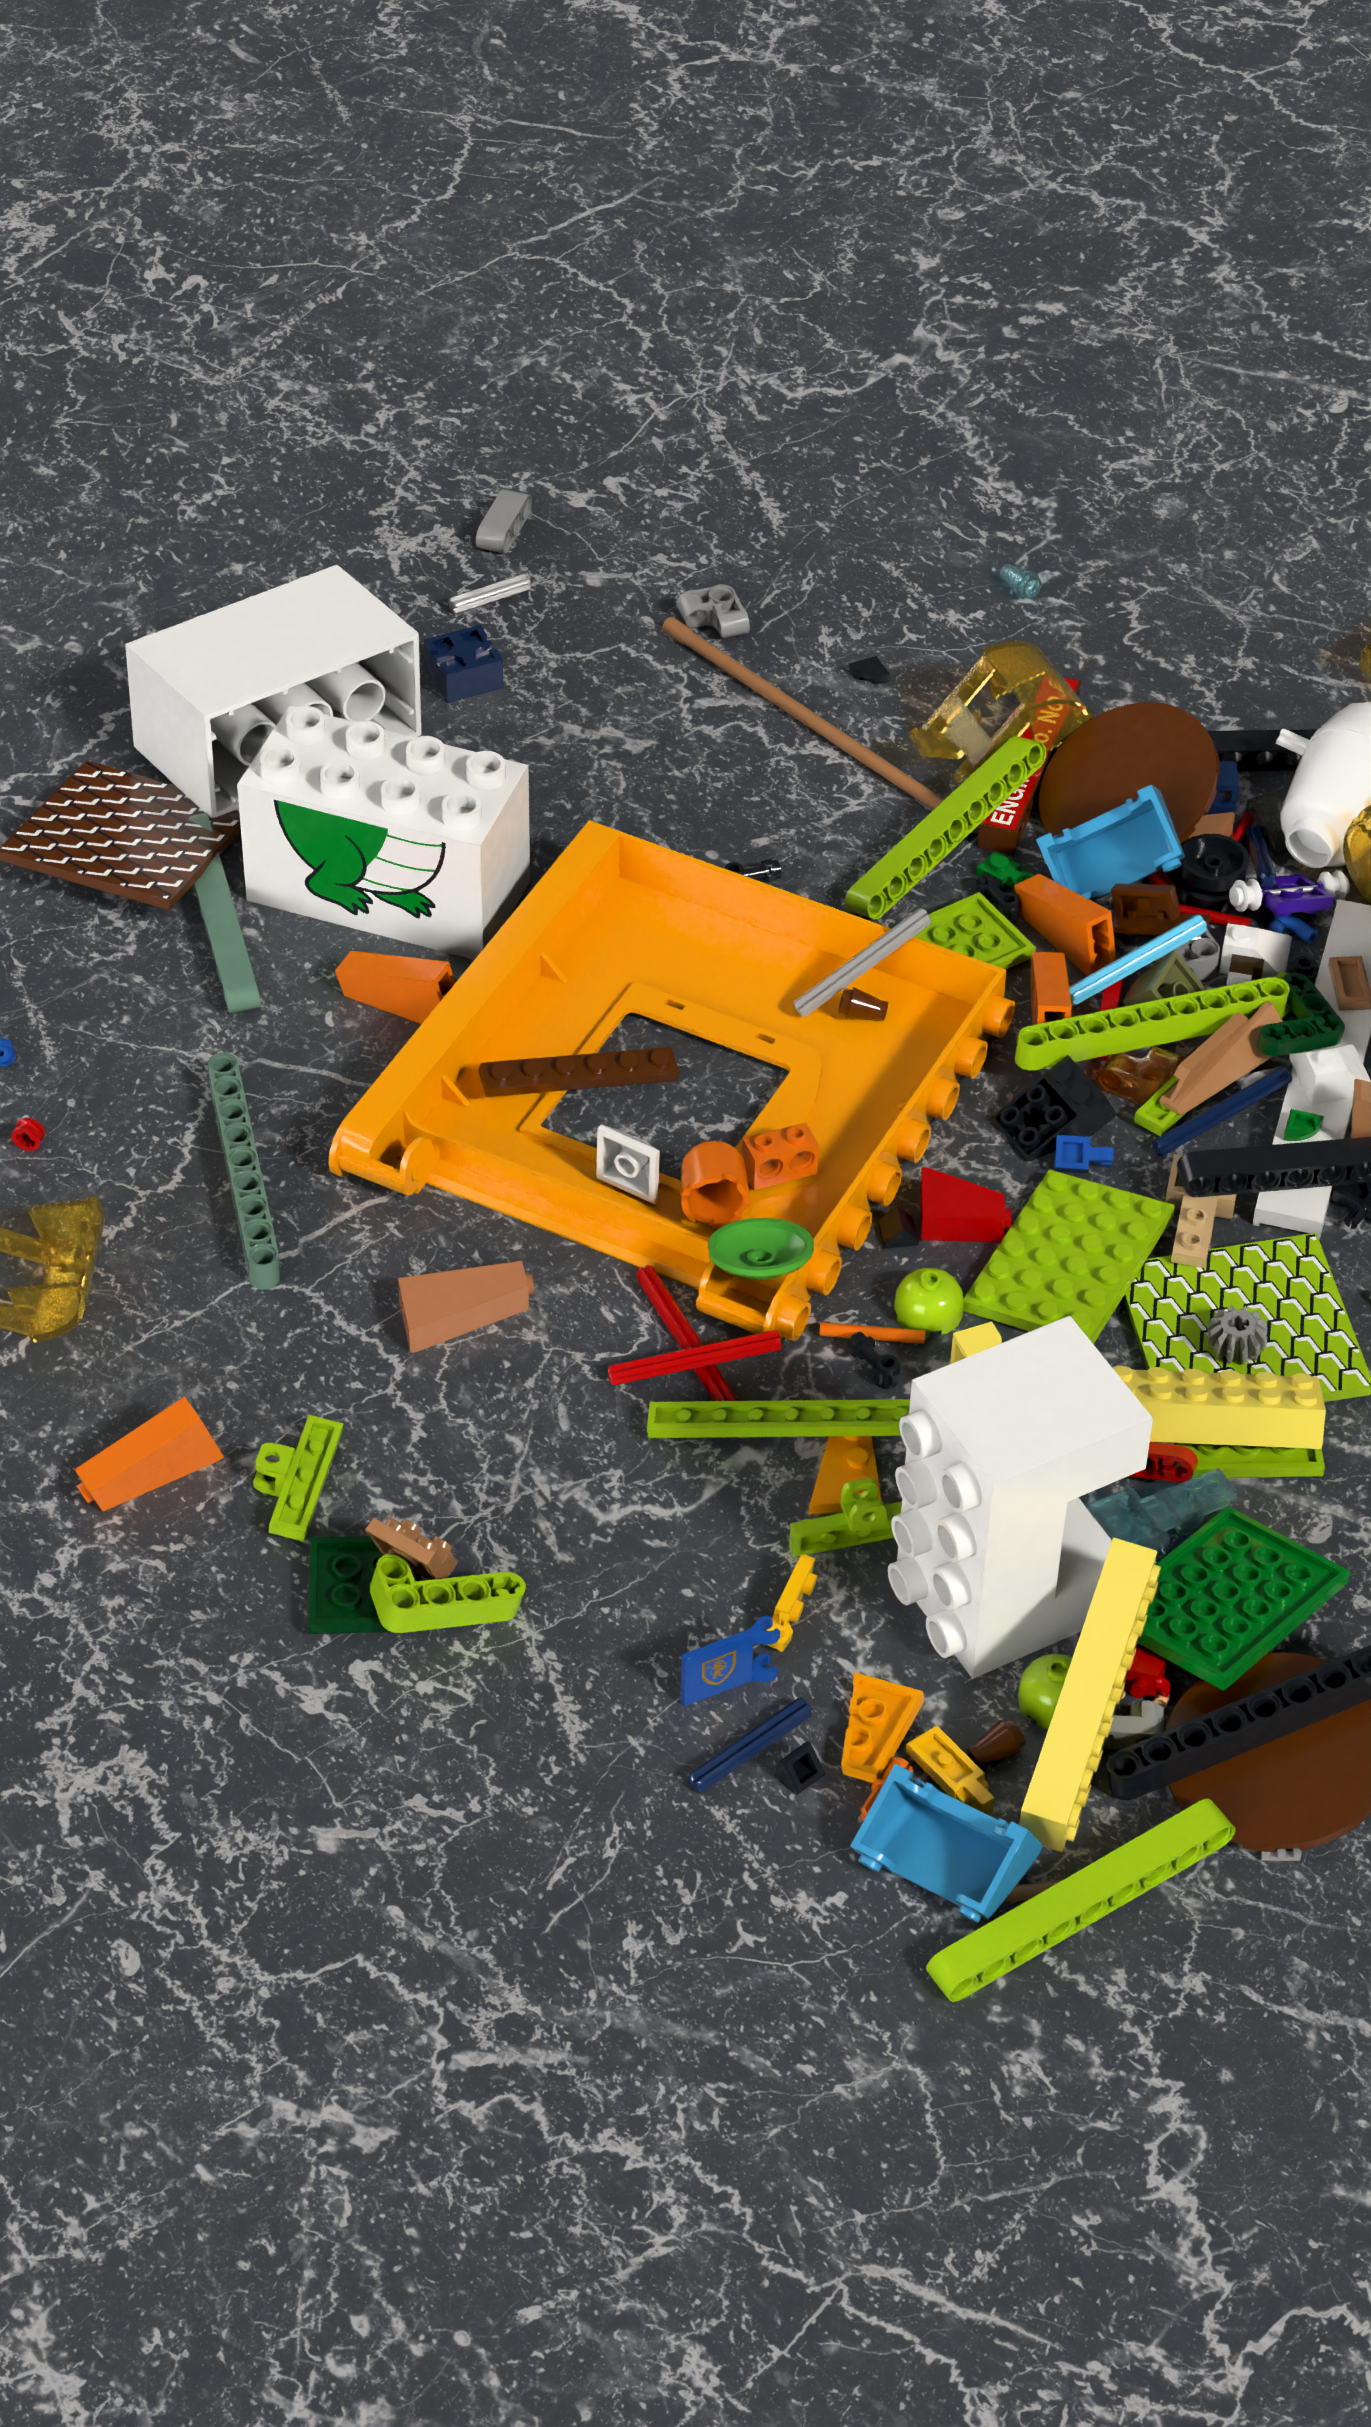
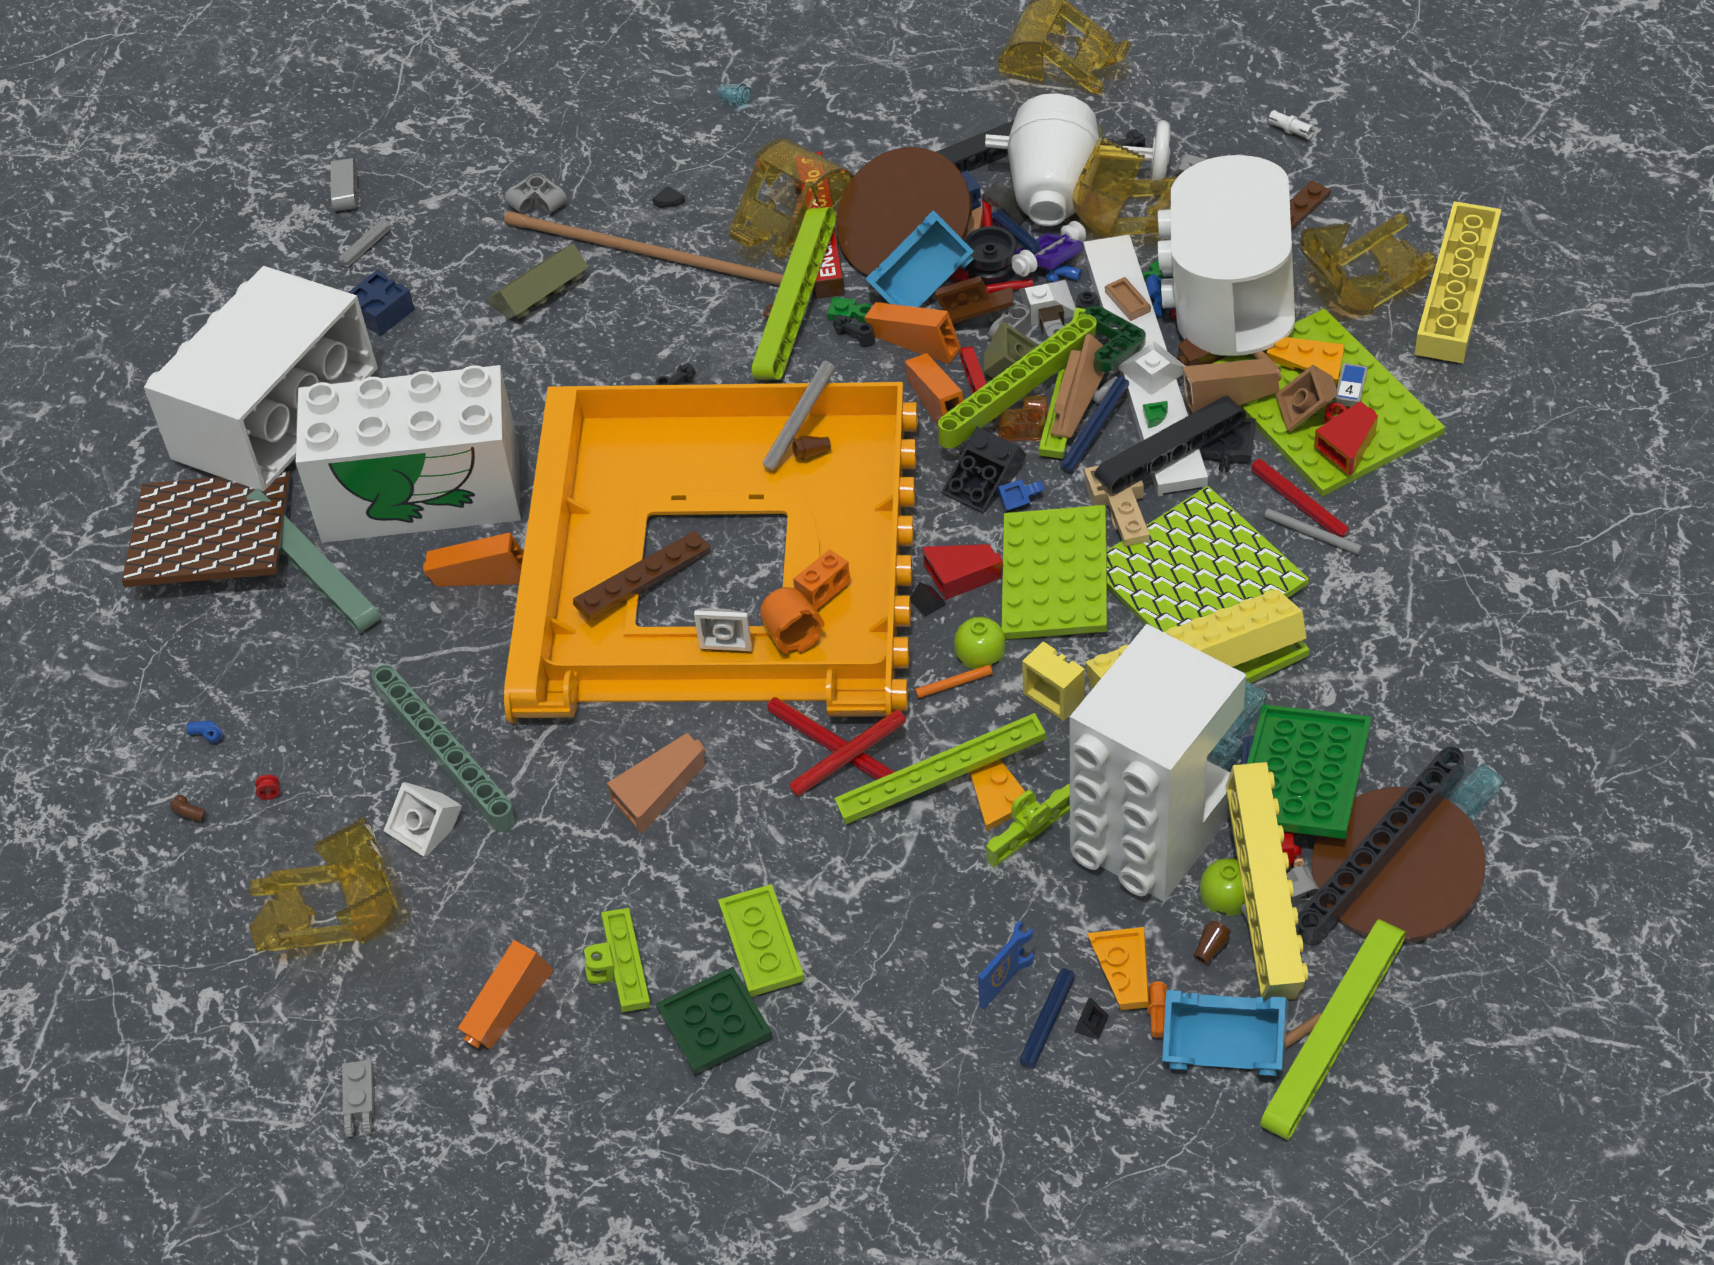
camera: 20 degrees left, 5 degrees up
(174, 1234) = (421, 818): none -> white slope
(425, 1556) = (743, 982): medium nougat plate -> none
(443, 1602) = (762, 1023): lime beam -> none
(476, 1512) = (761, 940): none -> lime plate
(659, 707) = (538, 282): none -> olive slope
(760, 1248) = (858, 654): bright green dish -> none
(790, 1605) = (1015, 903): yellow hinge -> none
(886, 1366) = (979, 702): black bar -> none
(951, 1769) = (1192, 974): yellow hinge -> none
(978, 932) = (856, 361): lime plate -> none
(1137, 959) = (982, 337): medium azure axle -> none
(1237, 1334) = (1202, 580): light grey gear -> none

